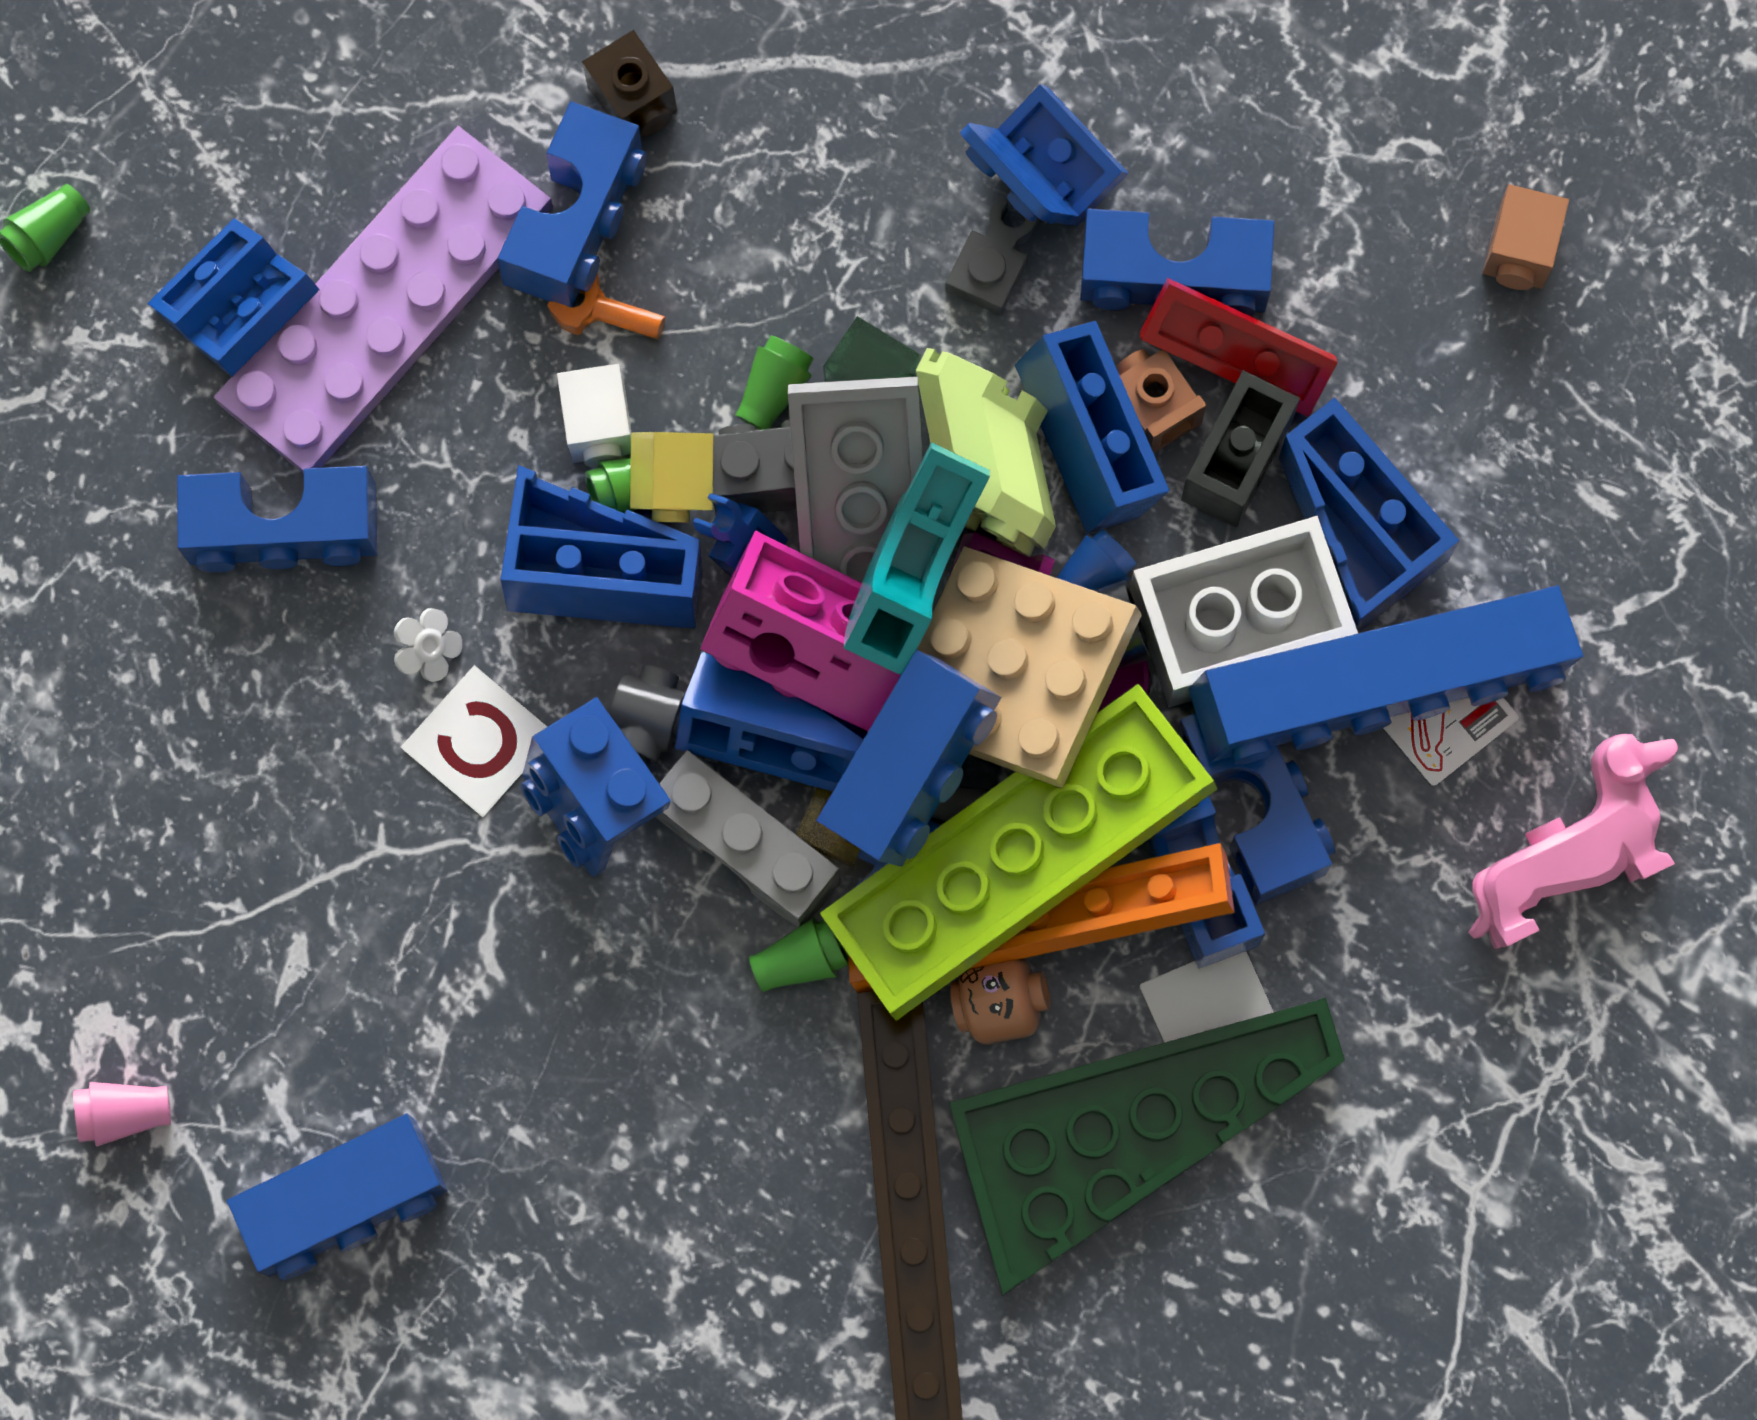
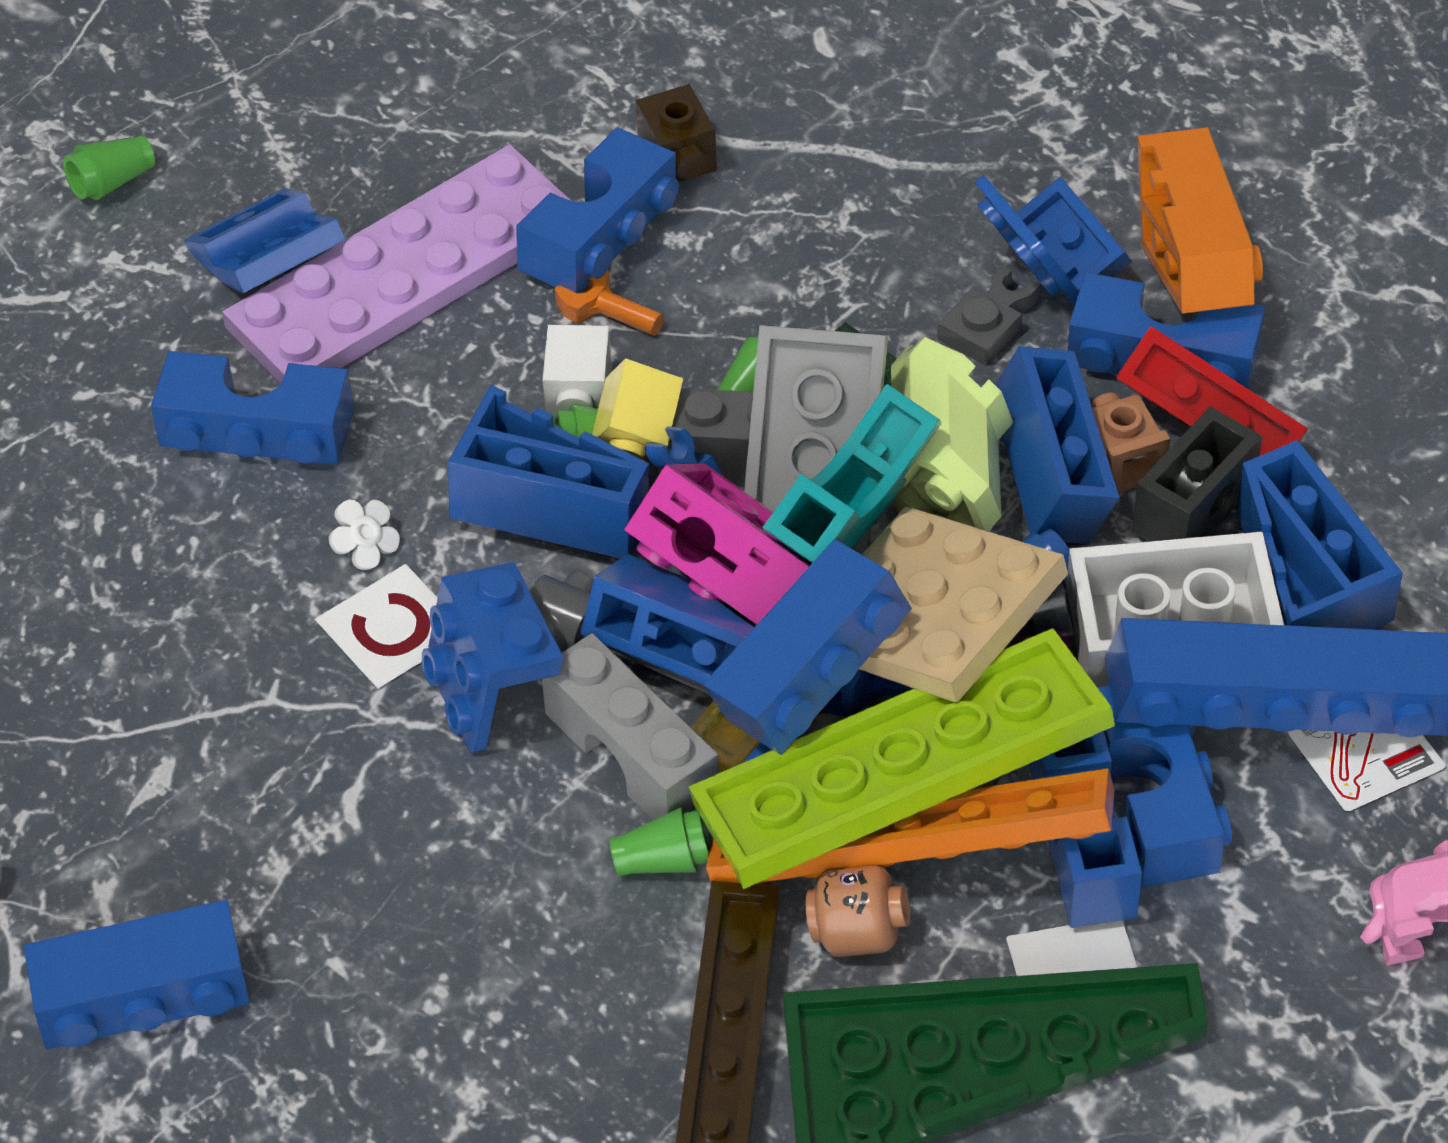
camera: 10 degrees right, 25 degrees down
(1190, 139) = (1194, 223): none -> orange wedge

